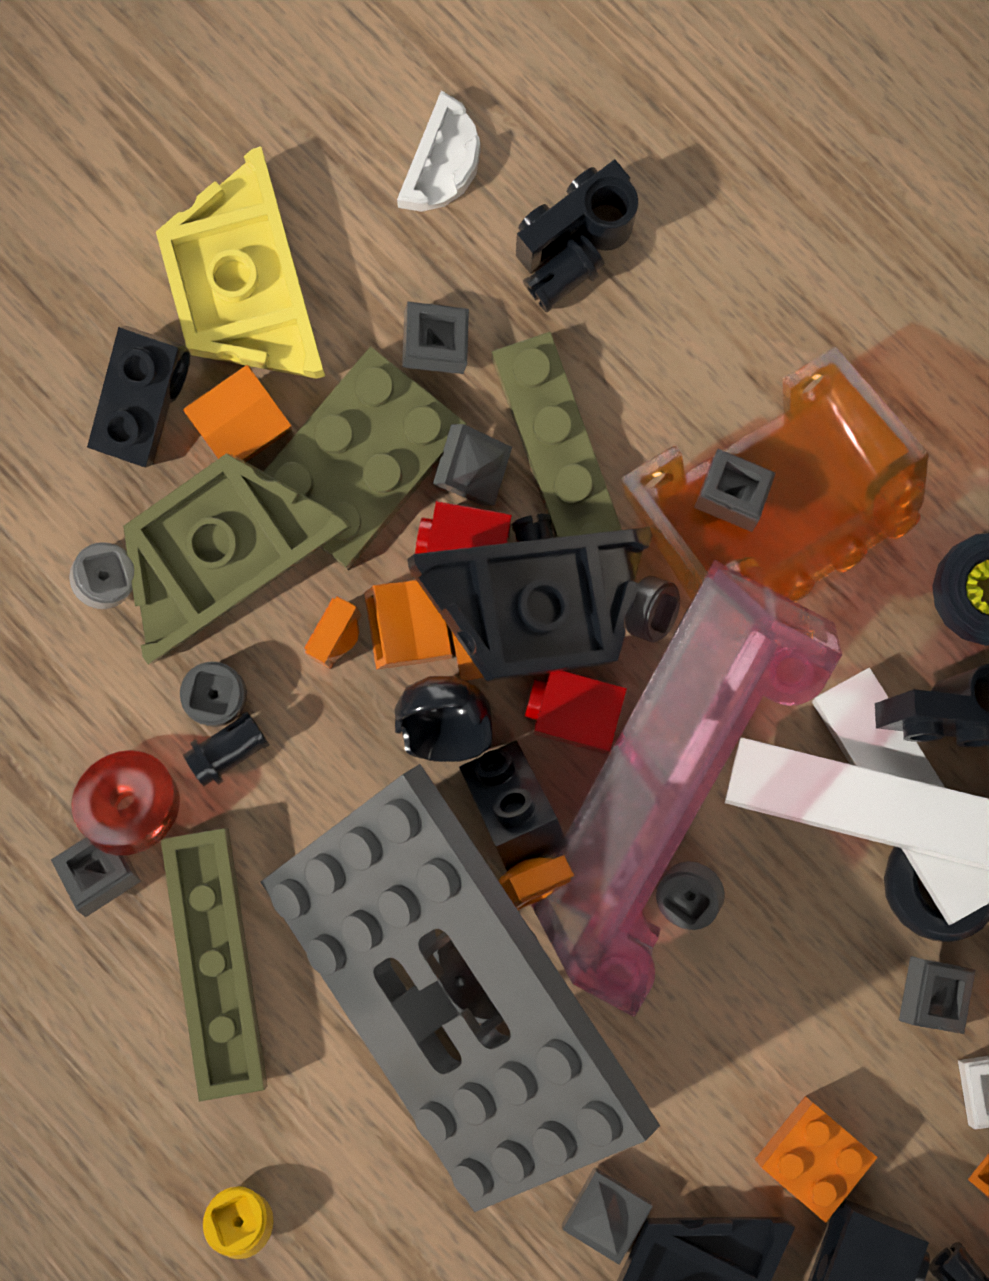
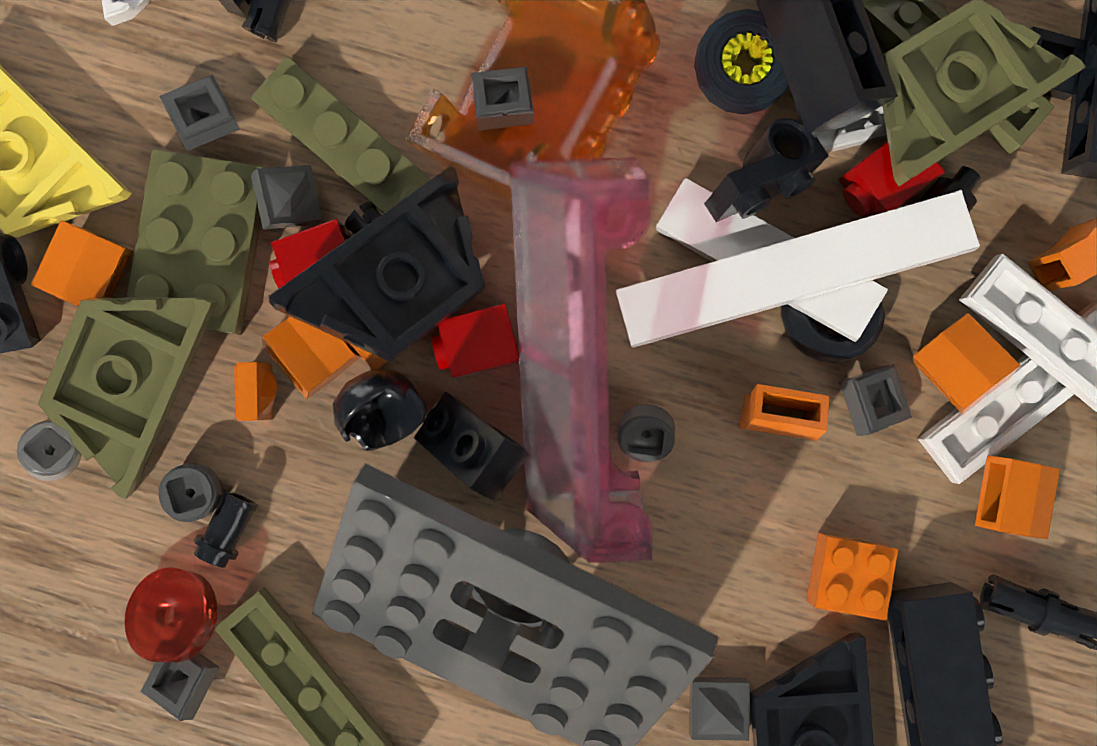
camera: 25 degrees left, 5 degrees up
(535, 880) = (515, 498): orange tile -> none
(653, 609) = (491, 229): dark grey tile -> none
(830, 966) = (810, 428): none -> orange piece

